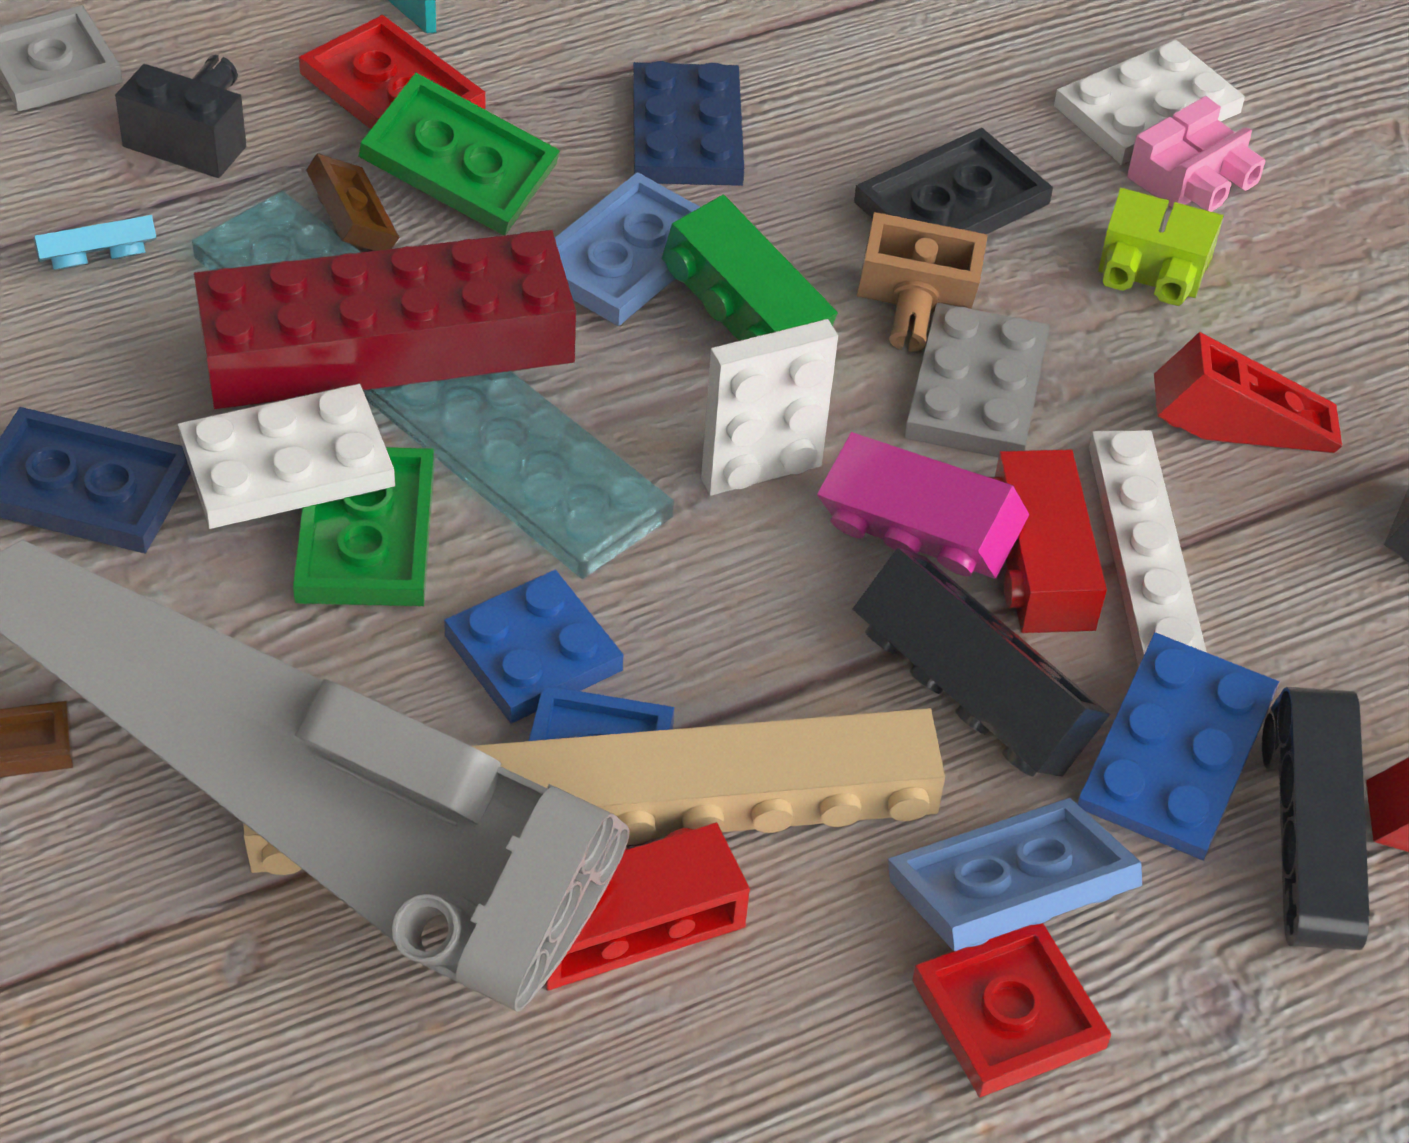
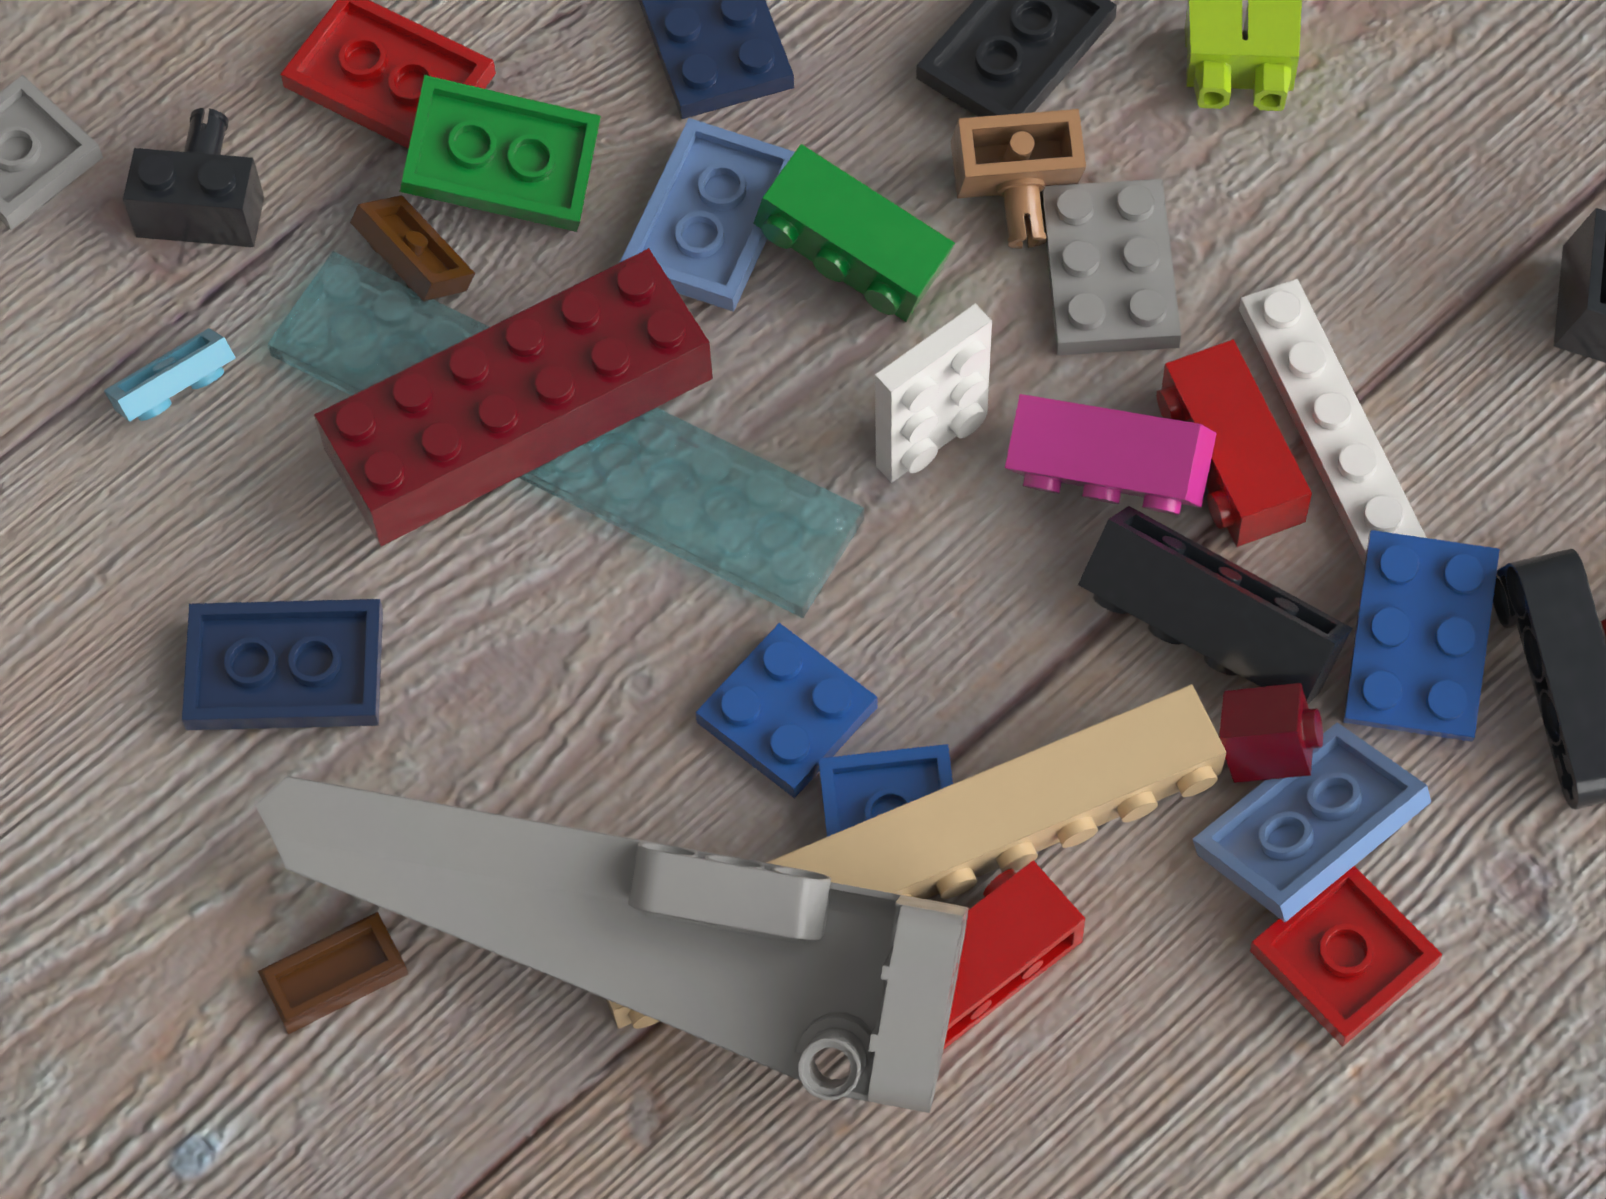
camera: 10 degrees left, 15 degrees up
(285, 455) = (477, 582): white plate -> none
(370, 543) = (579, 630): green plate -> none
(996, 781) = (1269, 732): none -> dark red brick
(1241, 401) = (1377, 218): red slope -> none

